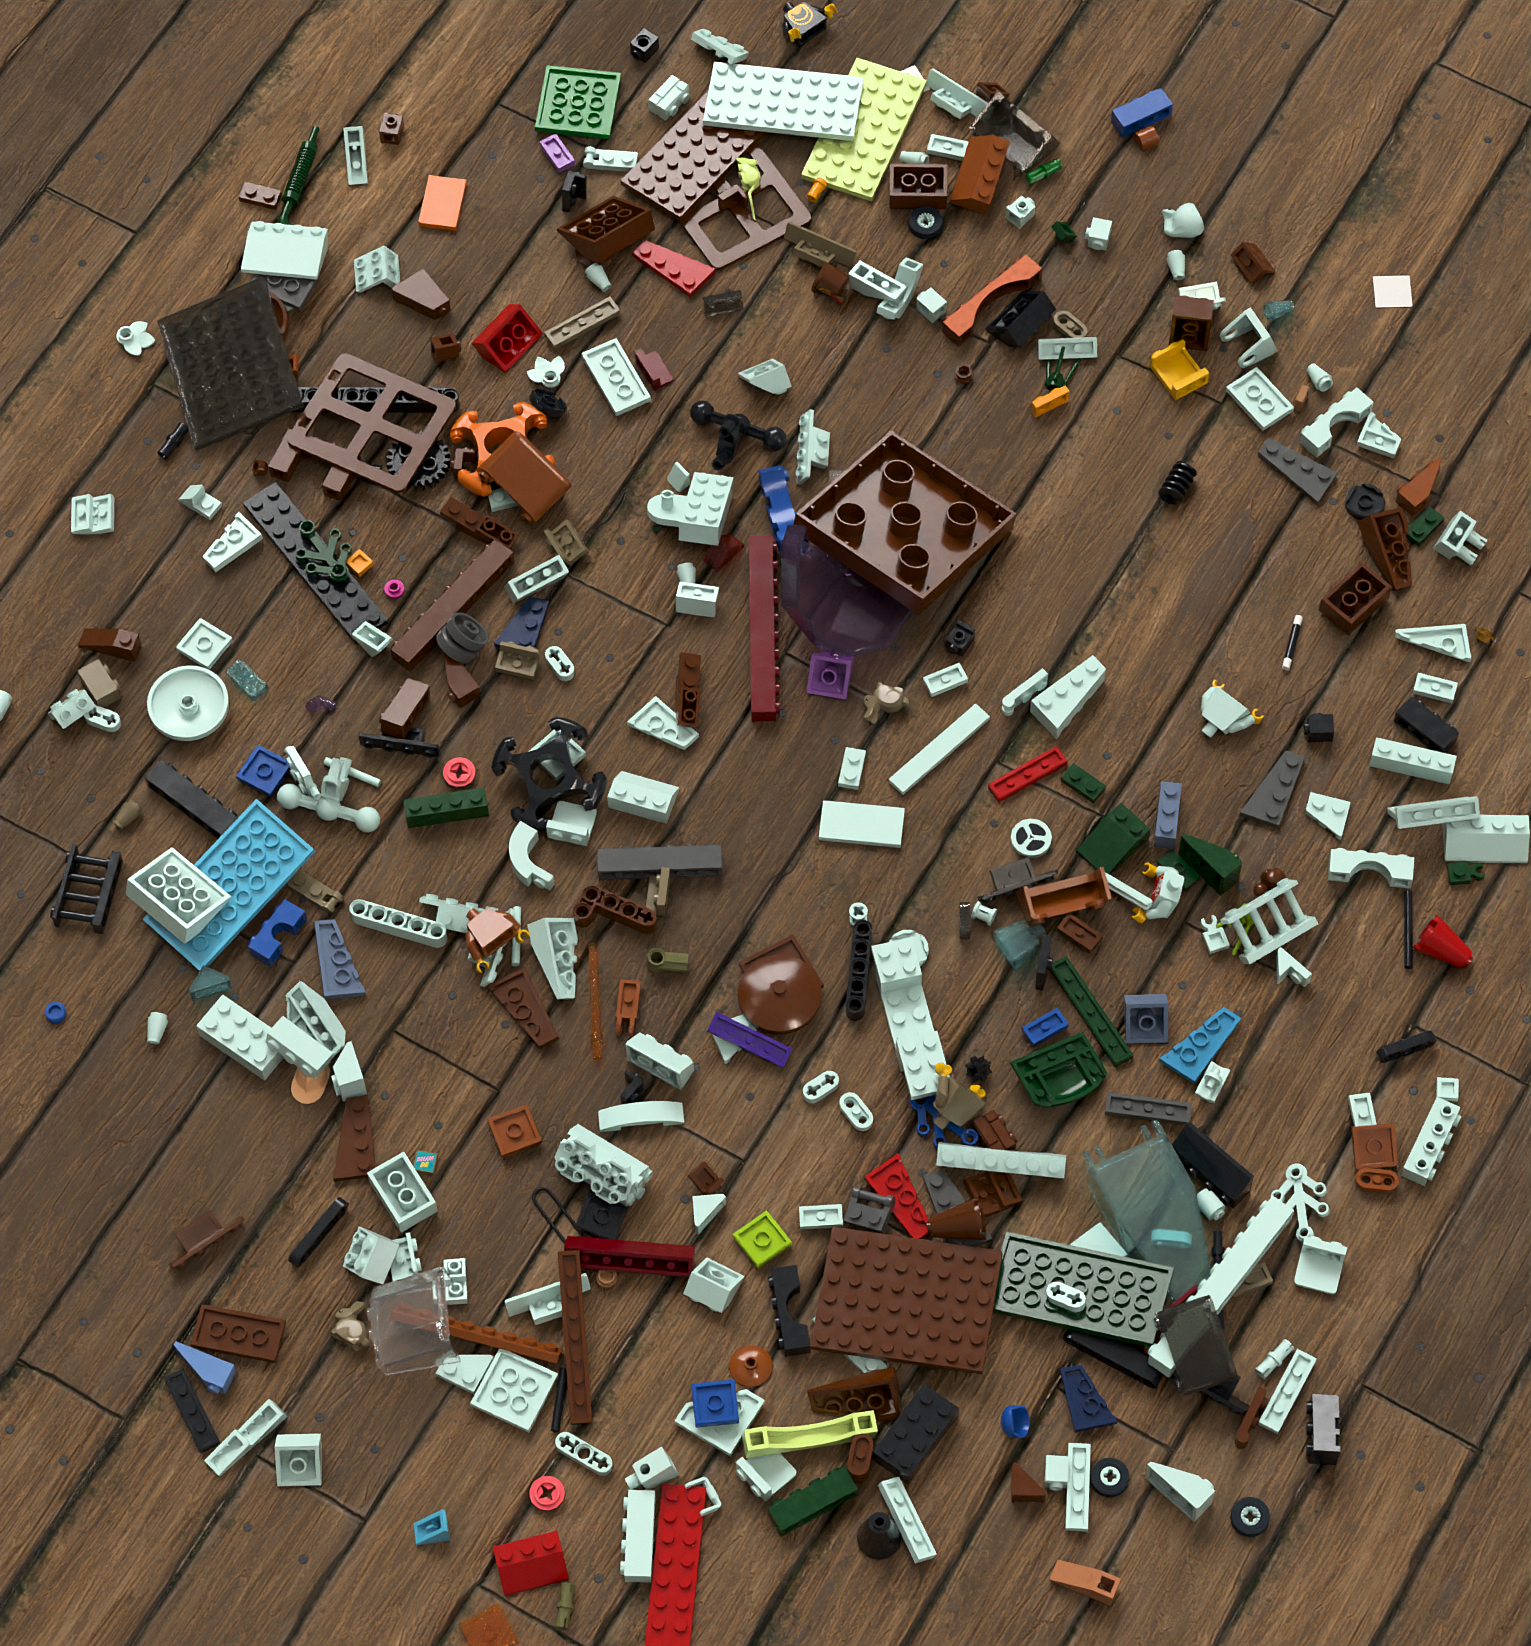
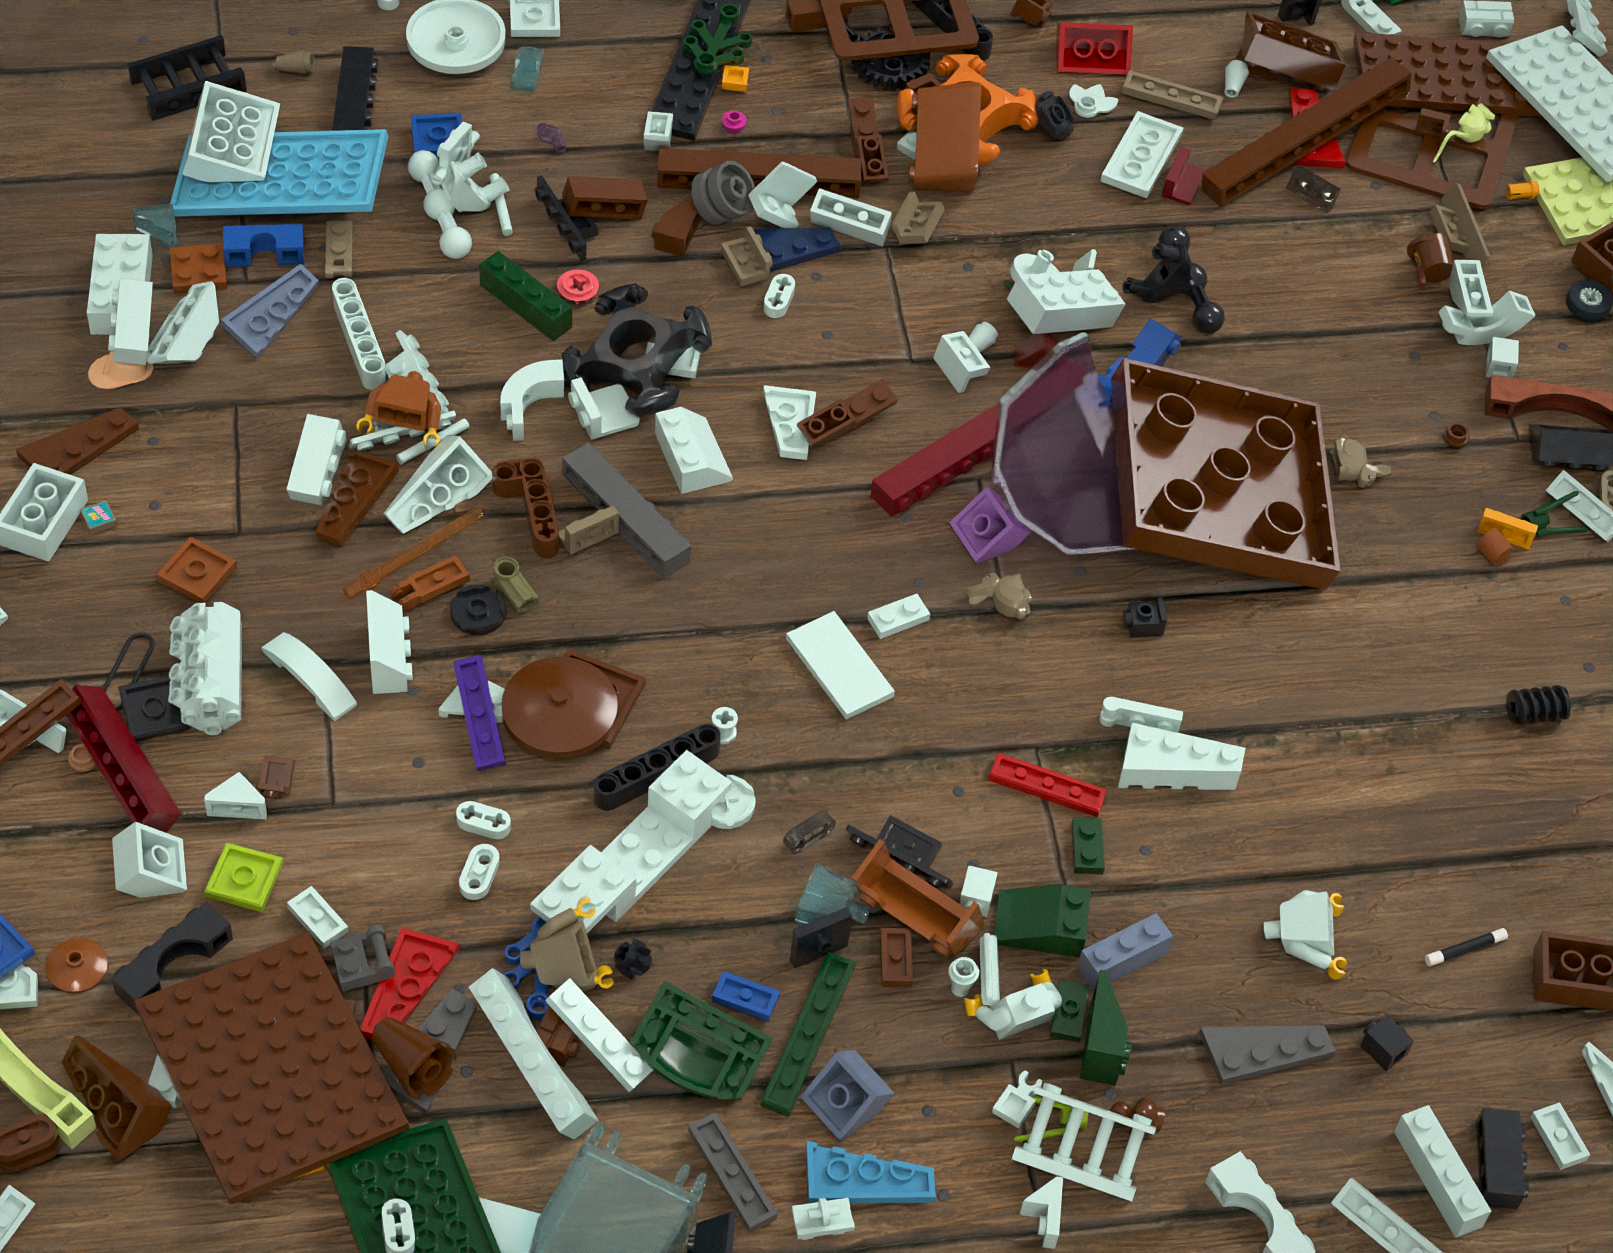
camera: 45 degrees right, 10 degrees down
(55, 1012) = (32, 132): blue tile -> none
(156, 1026) = (76, 213): light aqua cone -> none
(261, 983) = (197, 265): none -> dark orange plate
(348, 1076) = (145, 385): light aqua slope -> none
(487, 1010) = (316, 459): none -> light aqua wedge
(489, 616) = (778, 194): none -> light aqua bracket
(634, 1089) = (332, 645): black bracket -> none
(666, 993) = (478, 610): none -> black tile
(681, 274) = (1306, 132): none -> reddish brown brick
(768, 376) = (1271, 273): light aqua slope -> none
(812, 447) = (1237, 358): light aqua bracket -> none
(915, 1434) = (103, 1185): black brick -> none
(939, 445) = (1352, 464): none -> dark tan animal
(939, 749) = (998, 682): light aqua tile -> none
(945, 679) = (1084, 635): light aqua plate -> none
(984, 913) = (838, 840): light aqua bush -> none
(994, 1190) = (488, 1075): reddish brown slope -> none
(1017, 1118) = (599, 1035): none -> light aqua plate
(1031, 838) = (971, 836): light aqua tile -> none
(1058, 418) = (1495, 547): none -> dark orange brick
(1071, 861) = (978, 888): none -> light aqua brick
(1121, 906) = (963, 974): none -> light aqua cone
(1329, 812) = (1291, 1125): light aqua wing -> none

